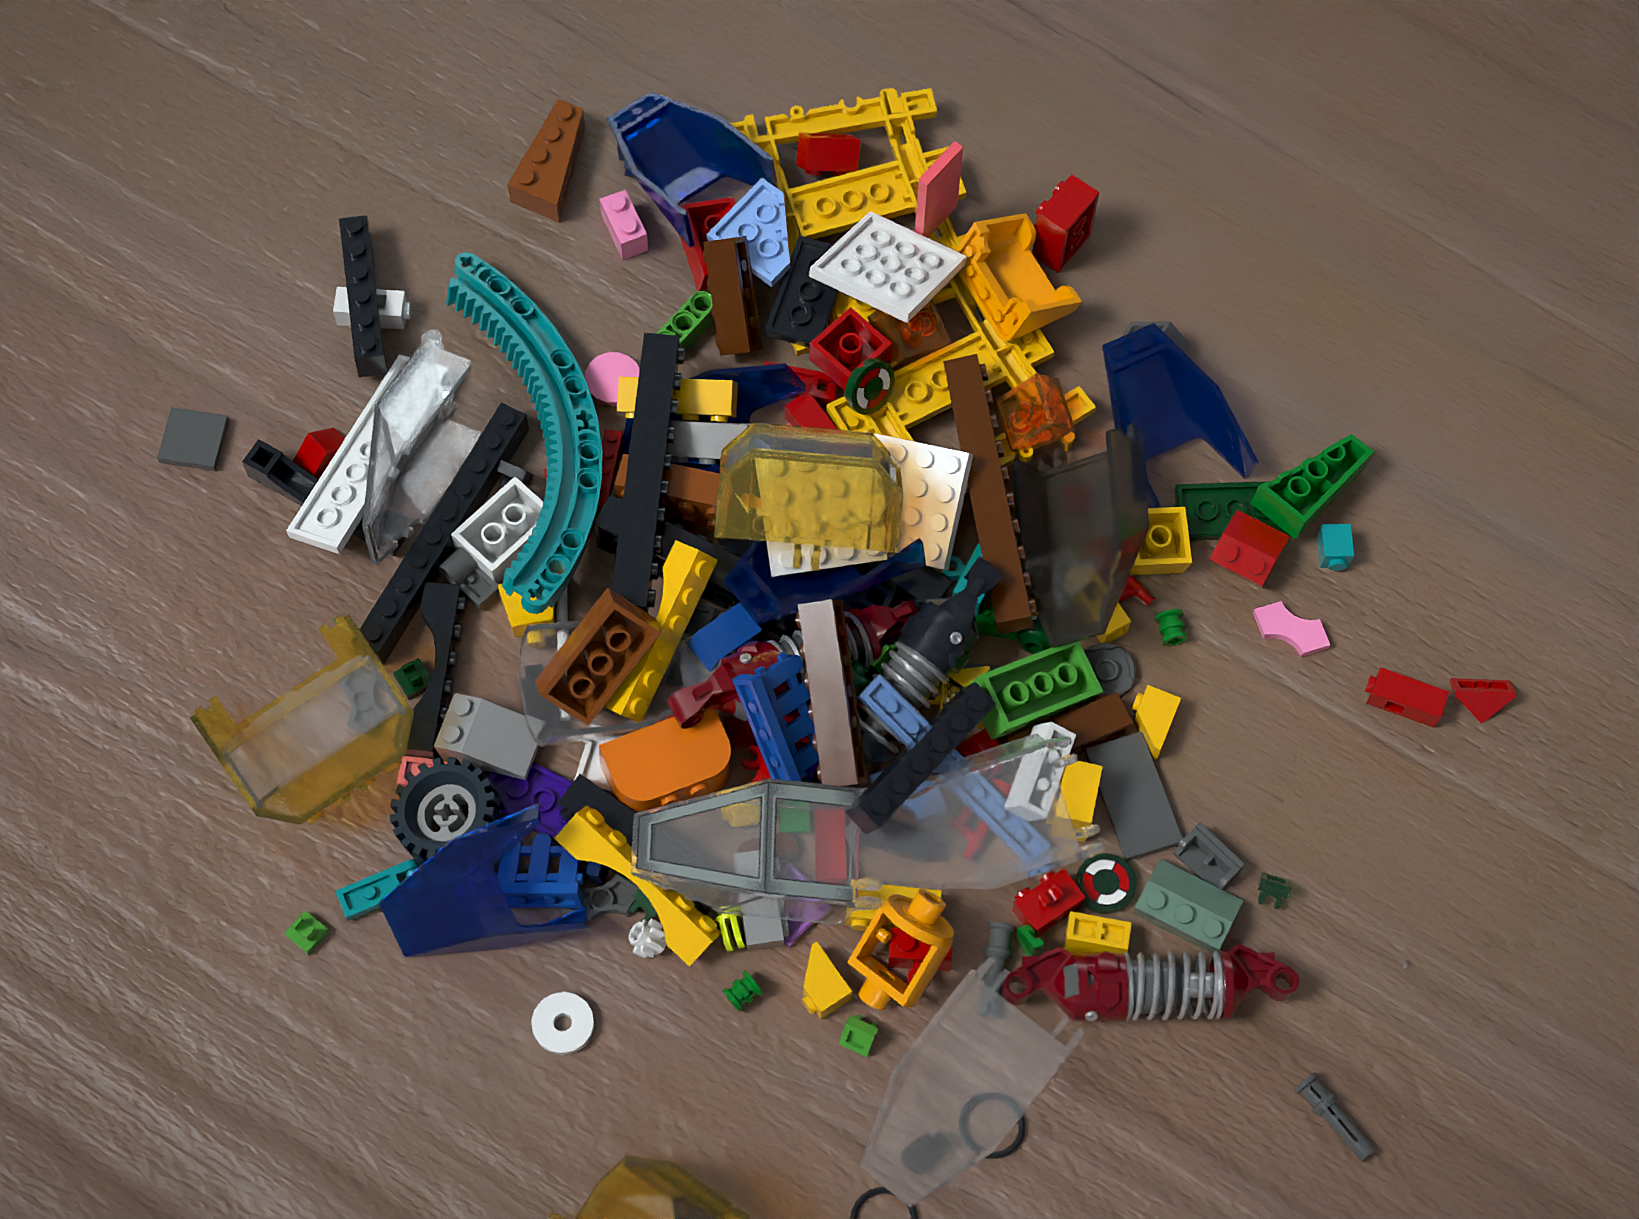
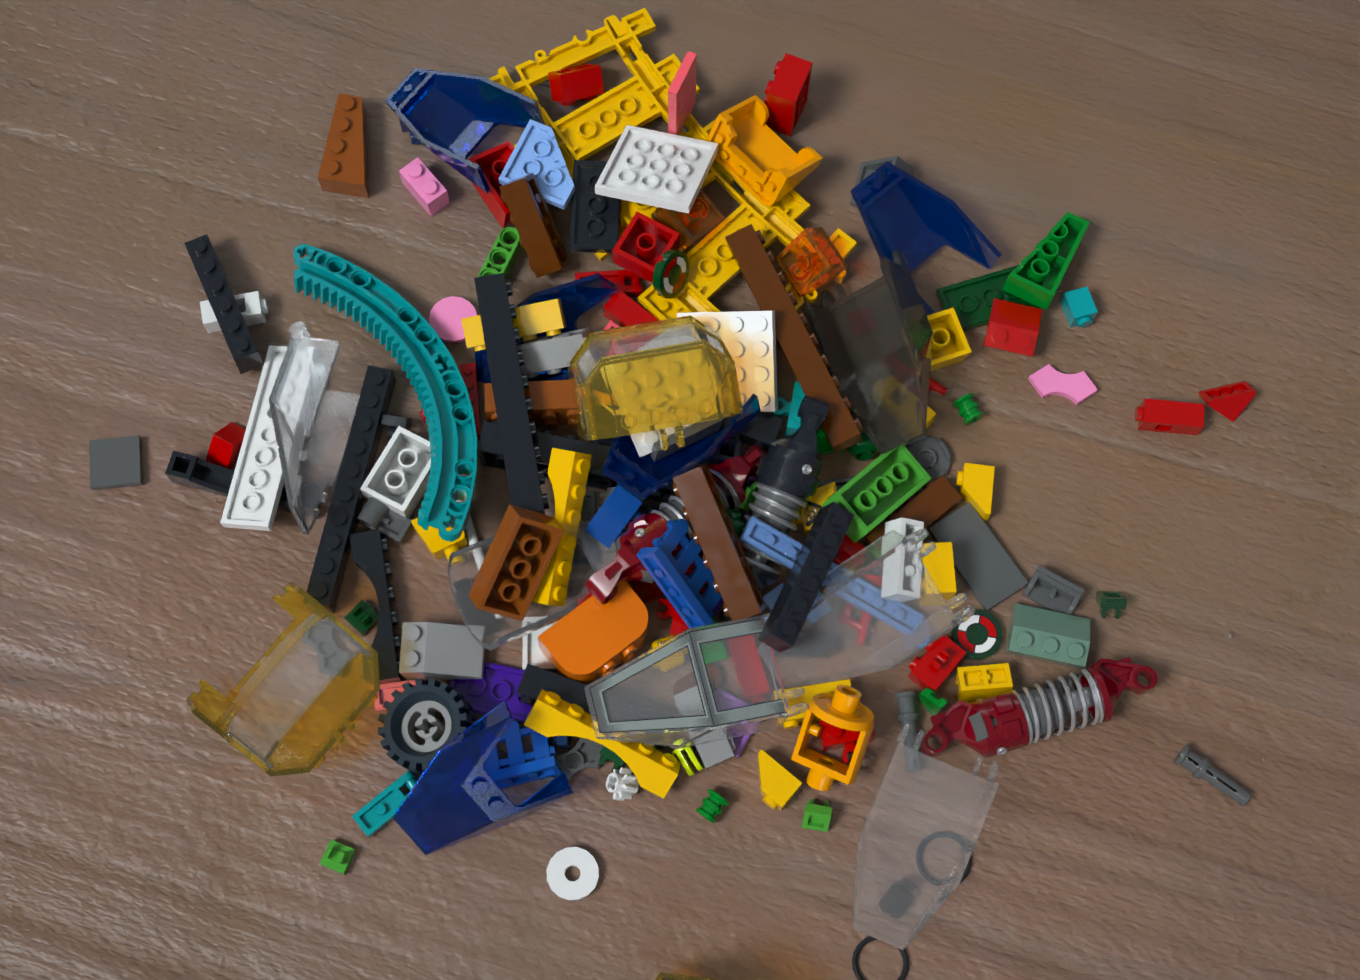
camera: 15 degrees left, 5 degrees up
(832, 568) = (691, 435): none -> dark grey tile

